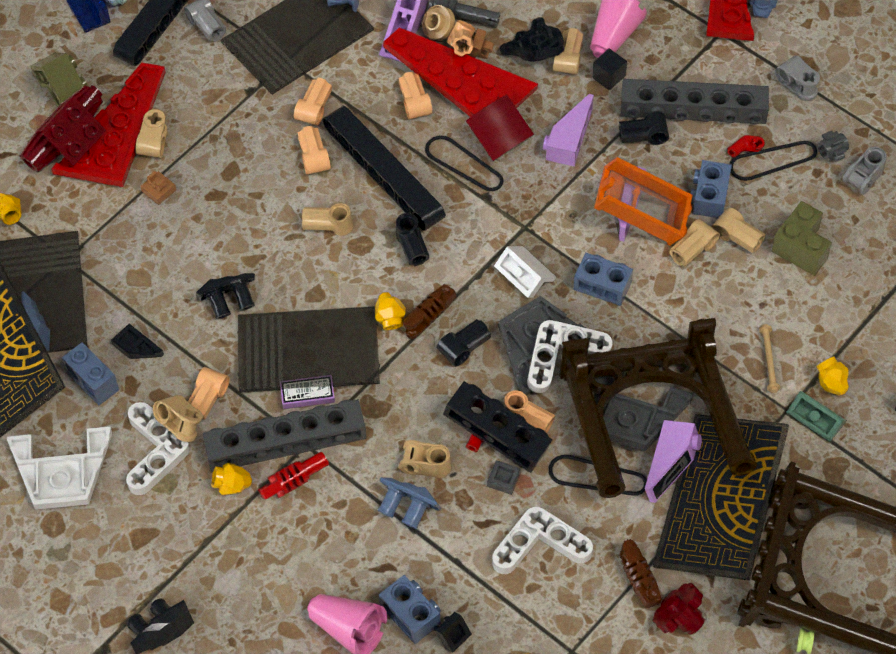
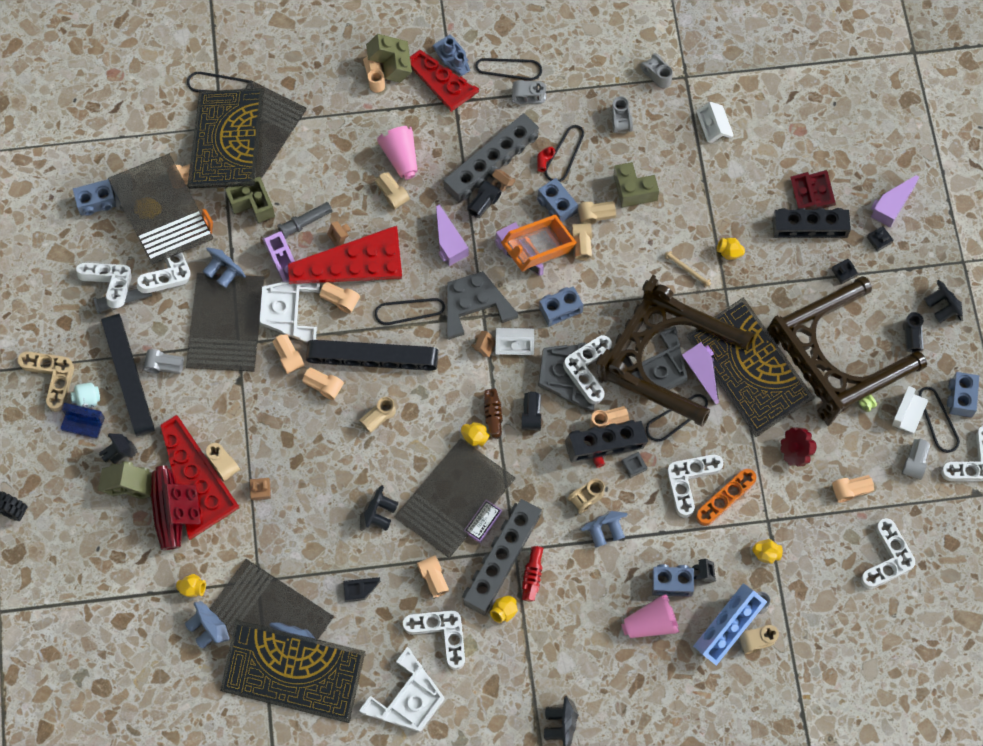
camera: 50 degrees left, 10 degrees up
(84, 46) = (118, 449): none -> black connector
(90, 373) = (360, 630): sand blue brick -> none
(178, 417) = (437, 604): tan piece -> none
(353, 62) = (280, 309): none -> white wing
(411, 240) = (439, 382): black piece -> none
(438, 22) = (301, 240): tan plate -> none
(461, 38) = (328, 238): light nougat piece -> none
(492, 246) = (484, 344): none -> medium nougat tile
(499, 127) = (409, 271): dark red slope -> none
(532, 199) = (473, 295): none -> dark grey wing
(535, 44) = (369, 201): black tile -> none
(555, 593) = (726, 497): none -> orange beam
(609, 69) = (426, 180): black piece -> none
(639, 574) = (757, 448): reddish brown hinge -> none
(684, 128) = (503, 178): none -> medium nougat tile
(815, 38) = (508, 60): none -> black piece
(816, 416) = (743, 278): sand green slope -> none
(833, 146) = (590, 117): dark grey gear -> none

